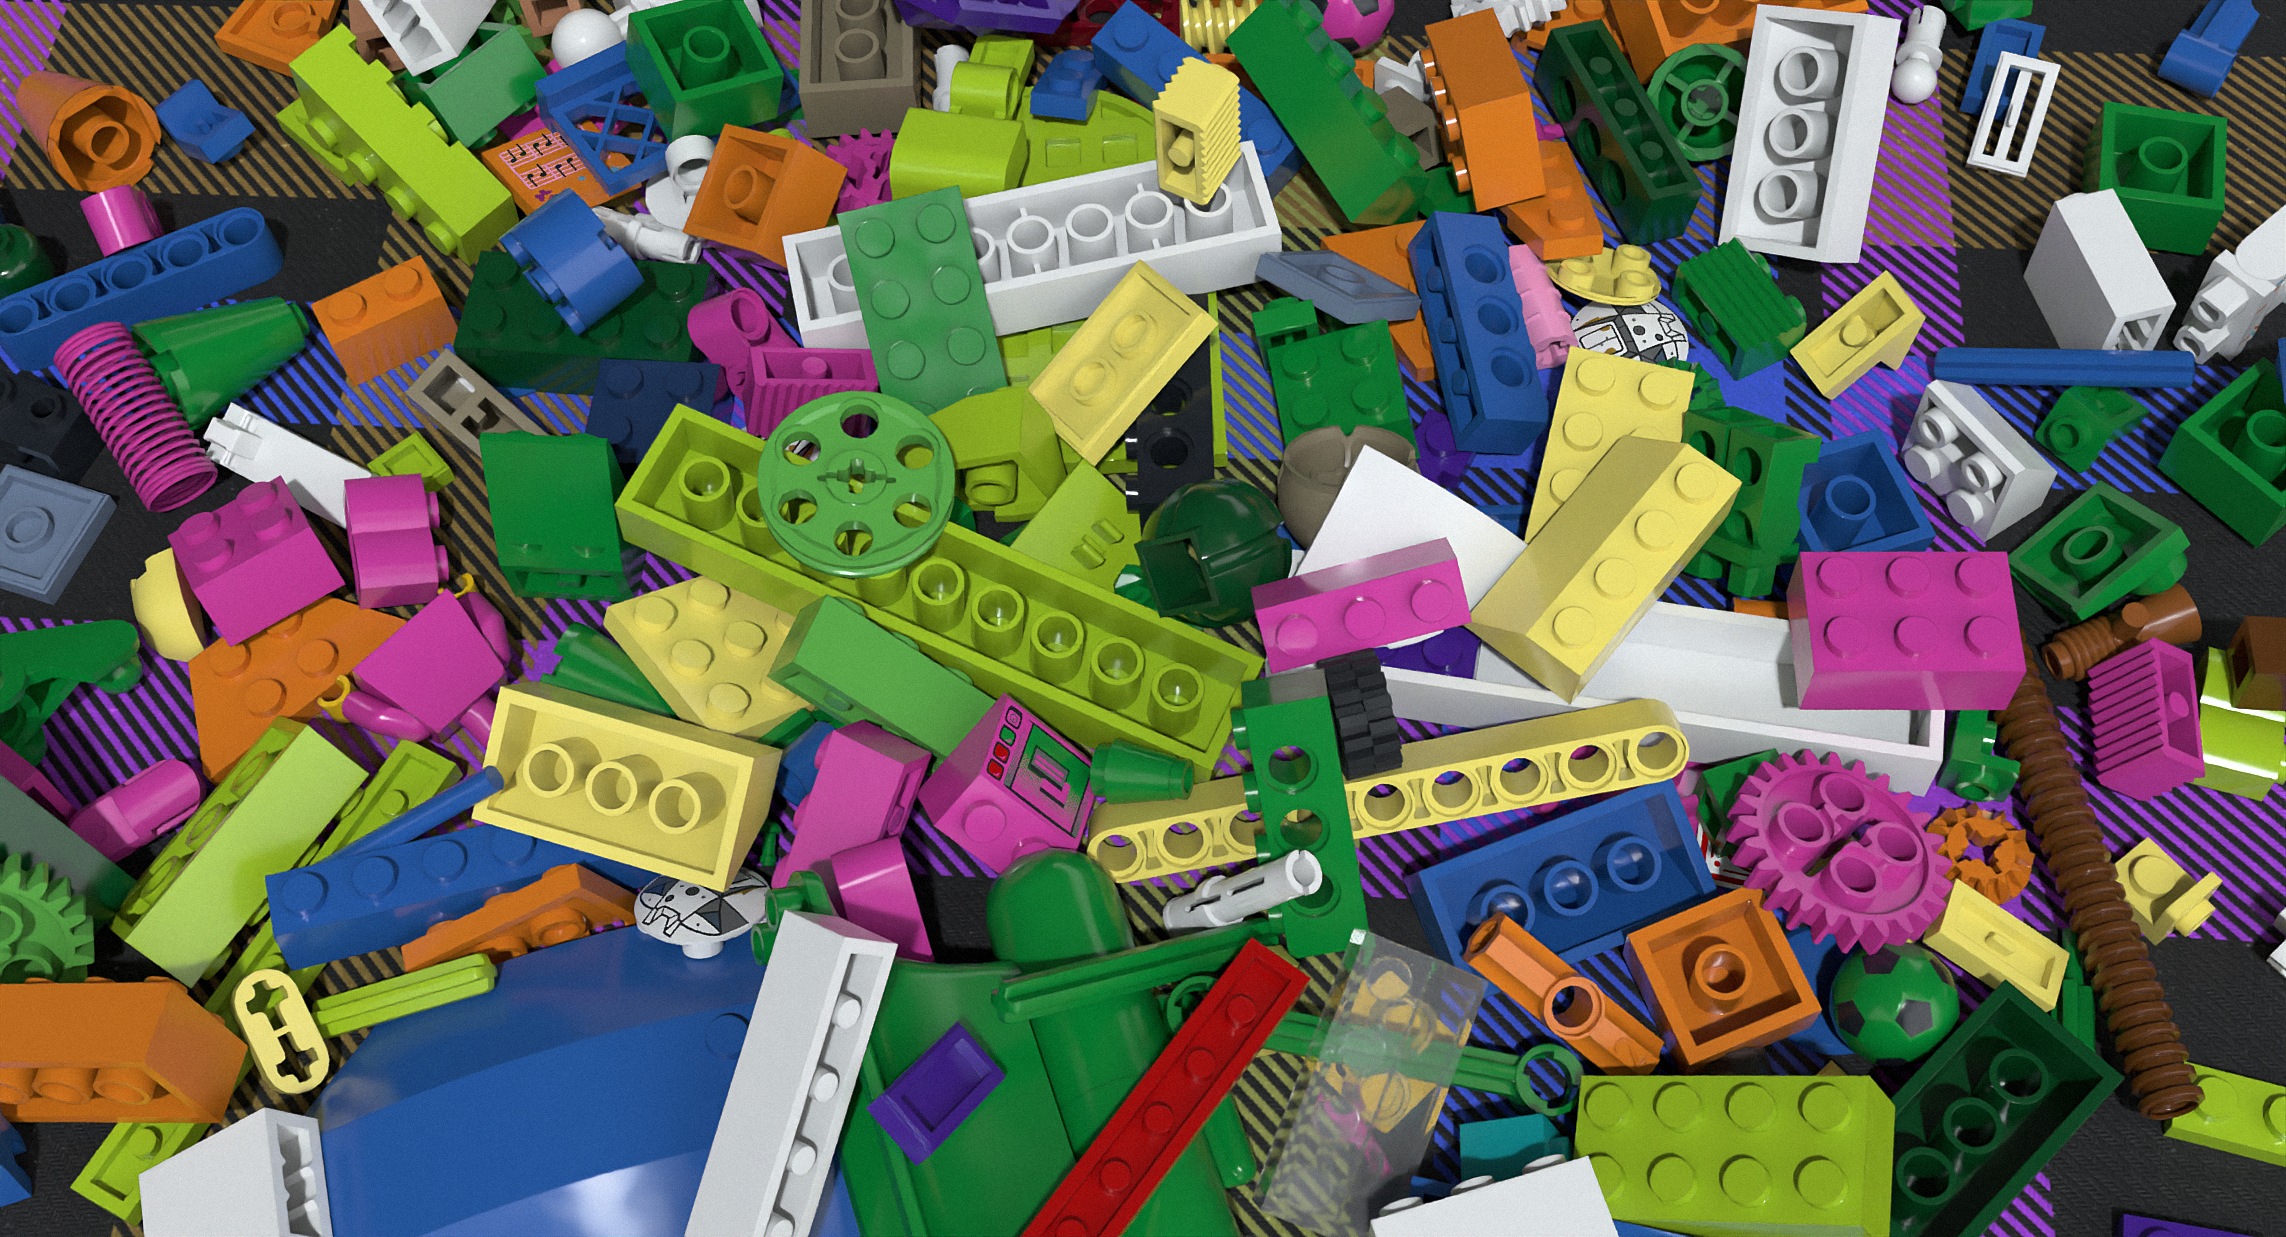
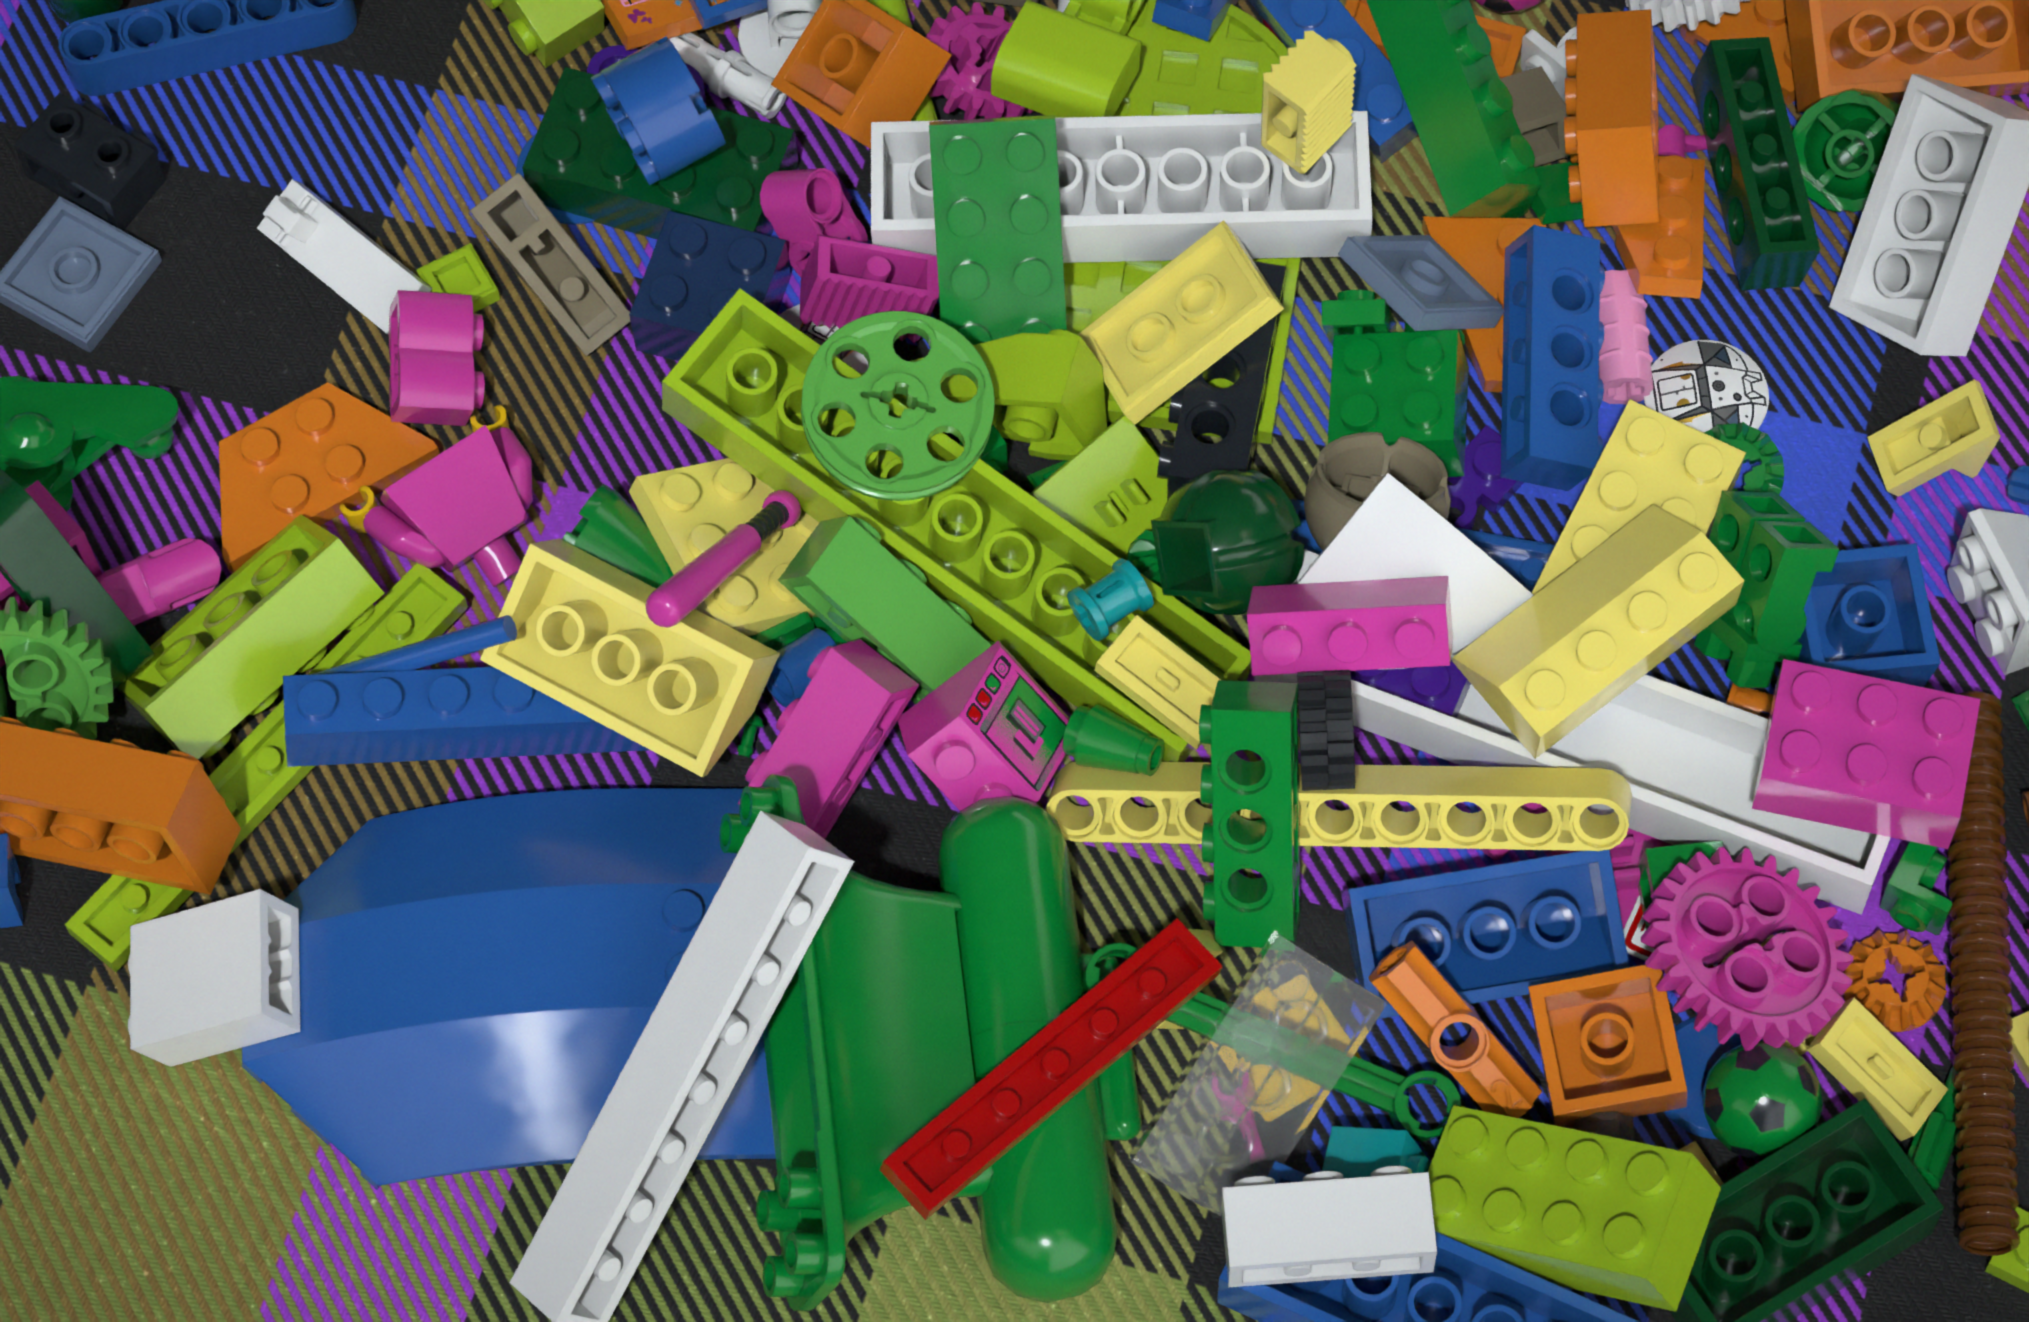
camera: 10 degrees right, 5 degrees up
(155, 492) = (219, 256): dark pink piece -> none
(168, 609) = (205, 383): light yellow brick -> none
(219, 352) = (281, 124): green cone -> none
(254, 560) = (300, 353): dark pink brick -> none
(295, 1023) = (285, 818): light yellow beam -> none
(386, 320) = (457, 118): orange brick -> none
(404, 995) = (387, 810): lime axle -> none
(545, 913) = (528, 761): orange wing -> none
(559, 516) = (604, 374): green slope -> none
(684, 687) = (710, 569): none -> dark pink piece
(700, 915) = (674, 793): white dish -> none
(882, 896) = (847, 811): dark pink beam -> none
(936, 1093) = (863, 998): dark purple tile -> none
(1109, 629) = (1110, 599): none -> teal bush
(1125, 971) = (1059, 925): green axle -> none
(1178, 699) = (1159, 678): none -> light yellow plate
(1228, 900) = (1164, 879): white pin -> none
(1608, 278) = (1711, 327): light yellow dish -> none
(1738, 308) = (1828, 381): green brick -> none

